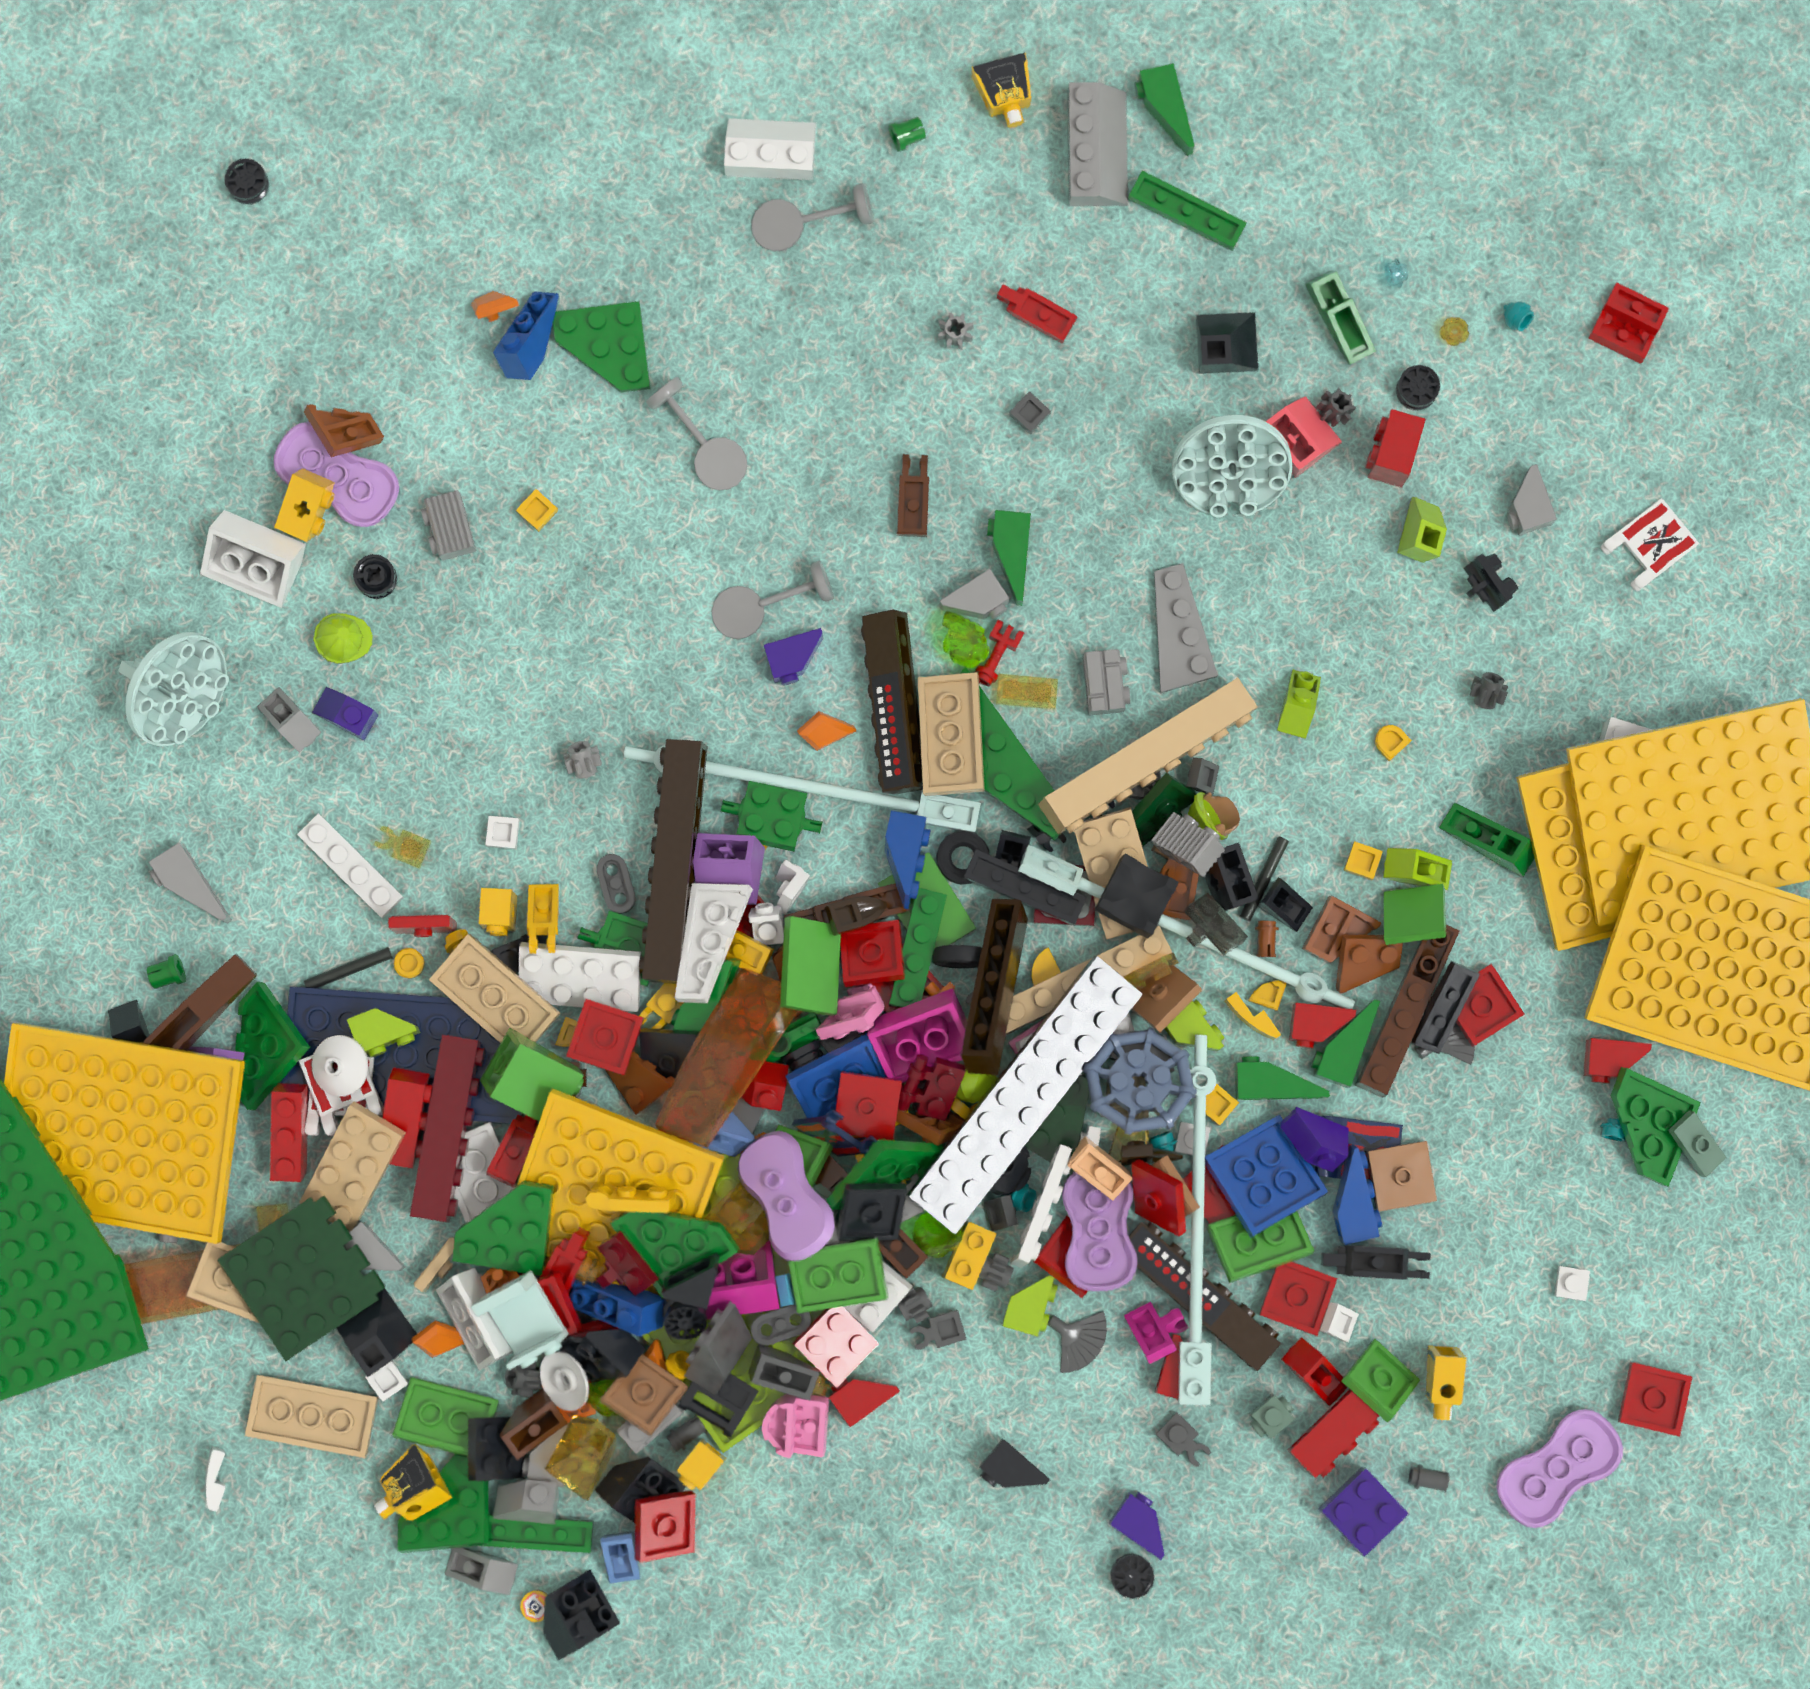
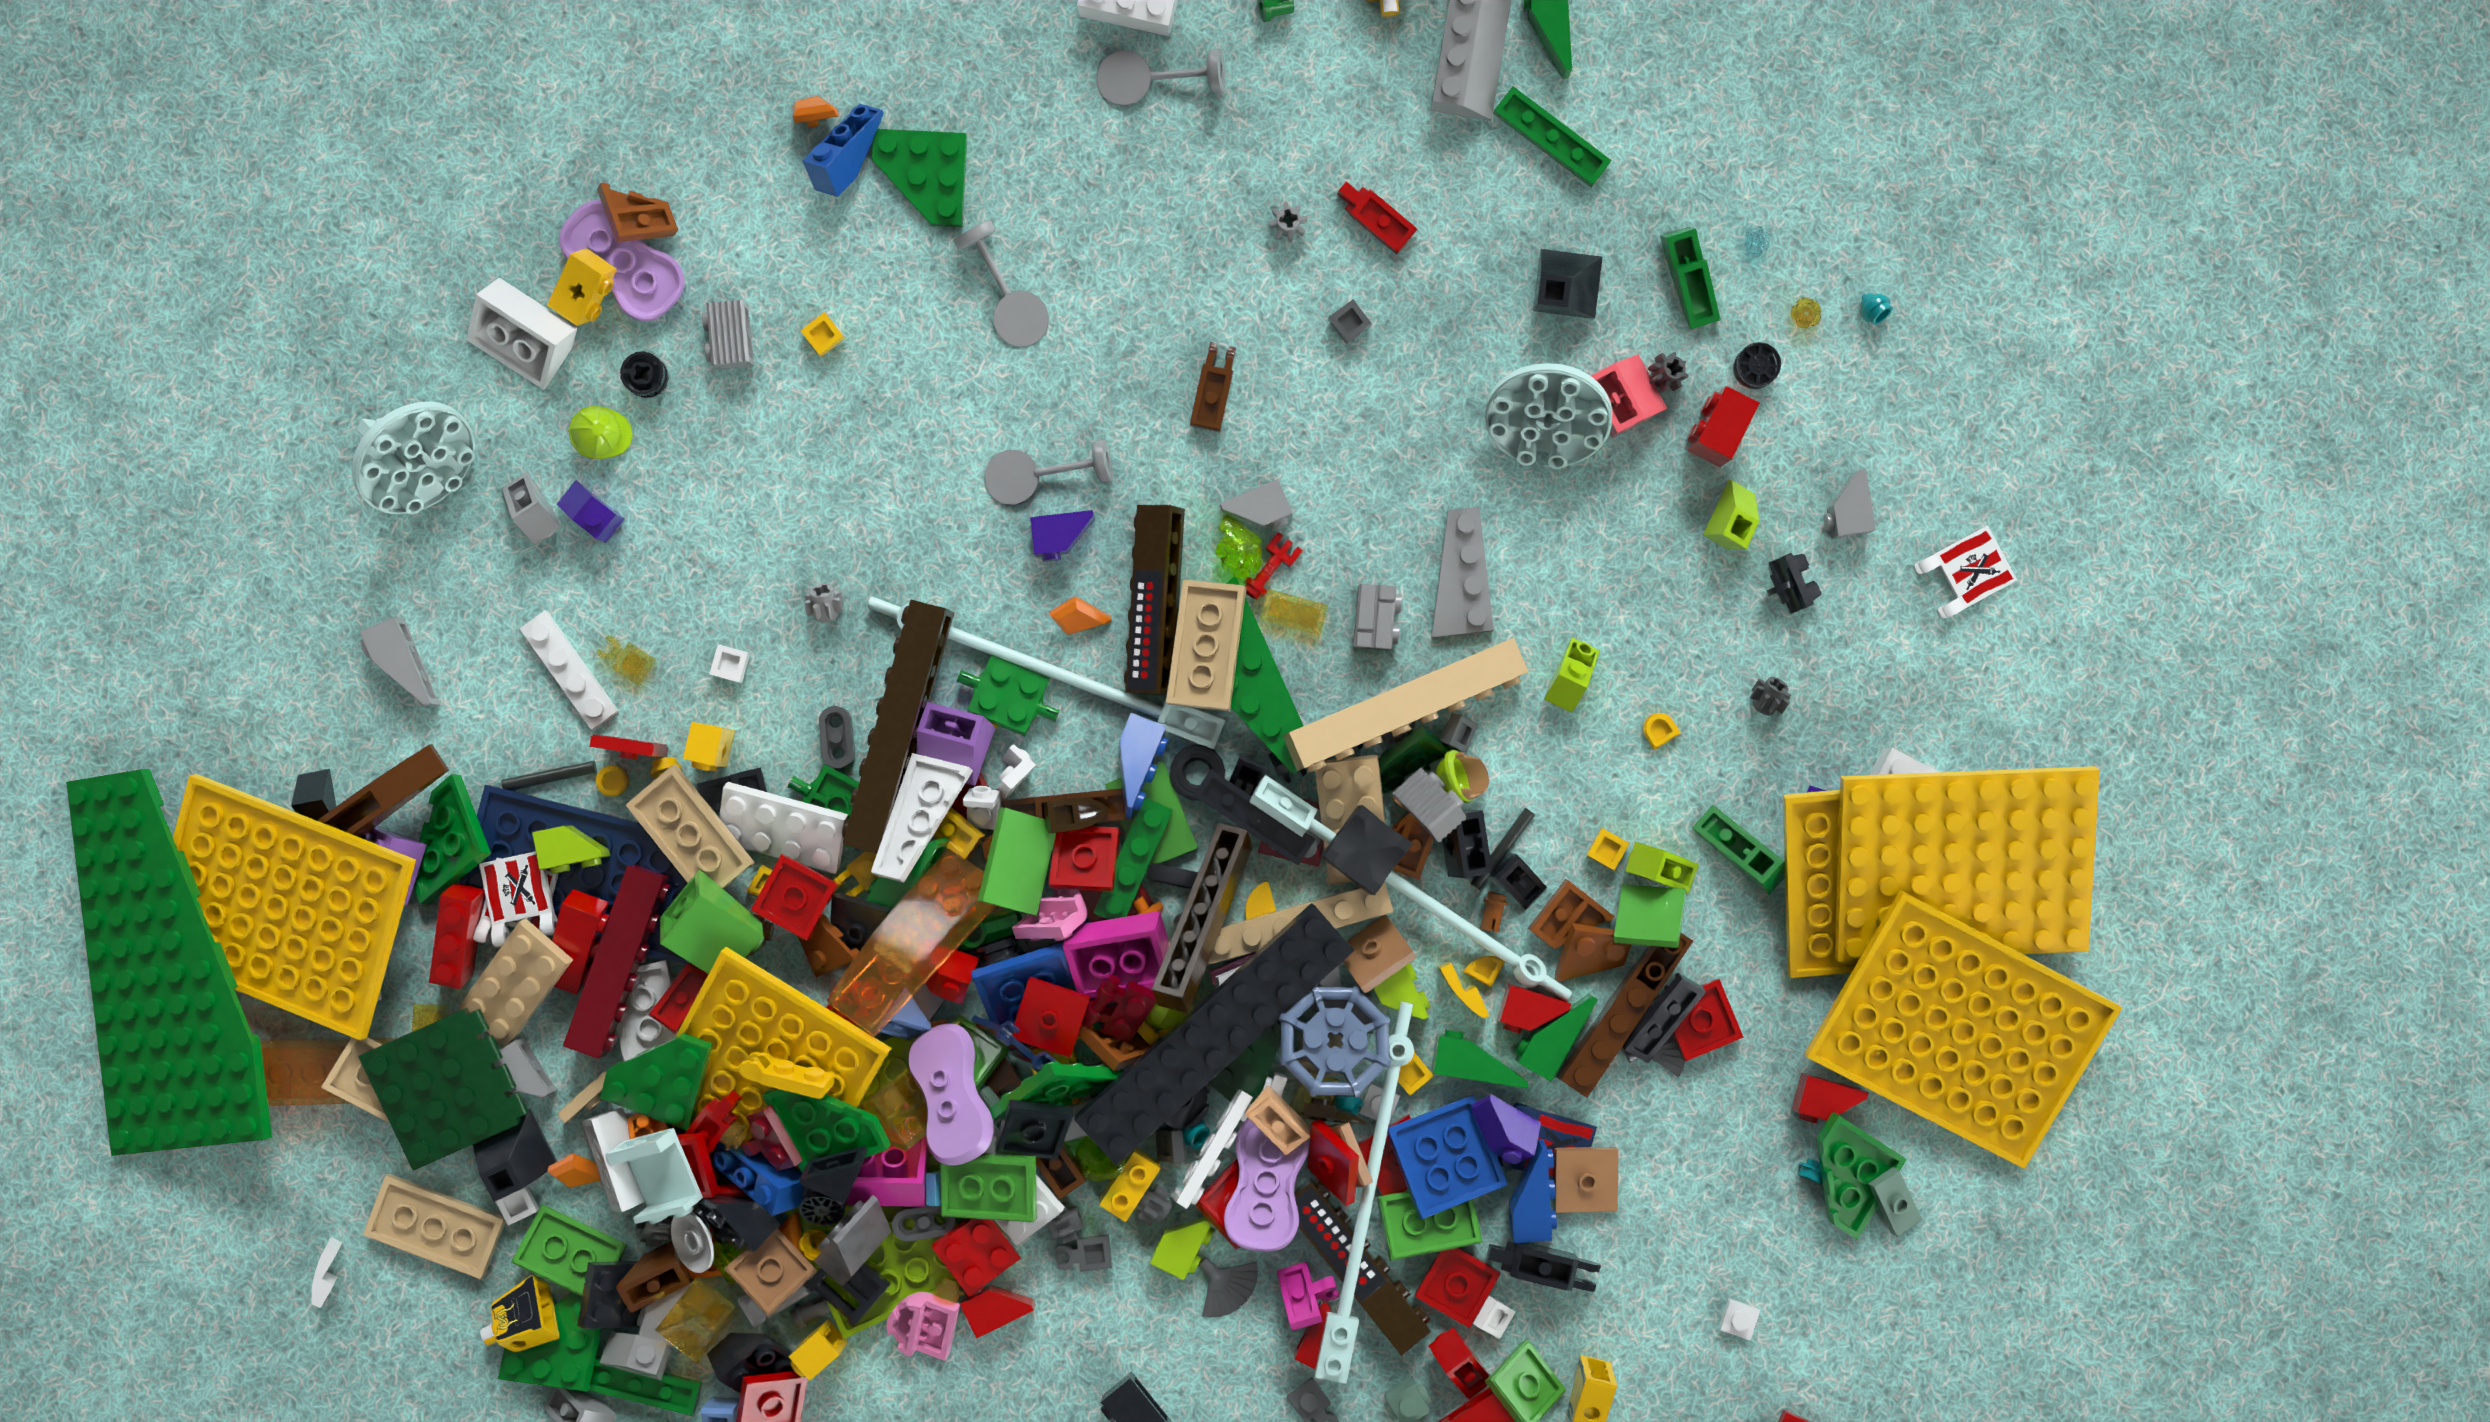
camera: 10 degrees right, 5 degrees up
(166, 972) = (363, 747): green bush -> none
(351, 1064) = (527, 874): white dish -> none
(542, 915) = (754, 758): yellow hinge -> none
(782, 1372) = (915, 1273): dark grey slope -> none
(1010, 545) = (1305, 453): green slope -> none
(1159, 969) = (1375, 926): clear yellow plate -> none
(1214, 924) = (1441, 890): clear smoke plate -> none
(1628, 323) = (1989, 336): red slope -> none

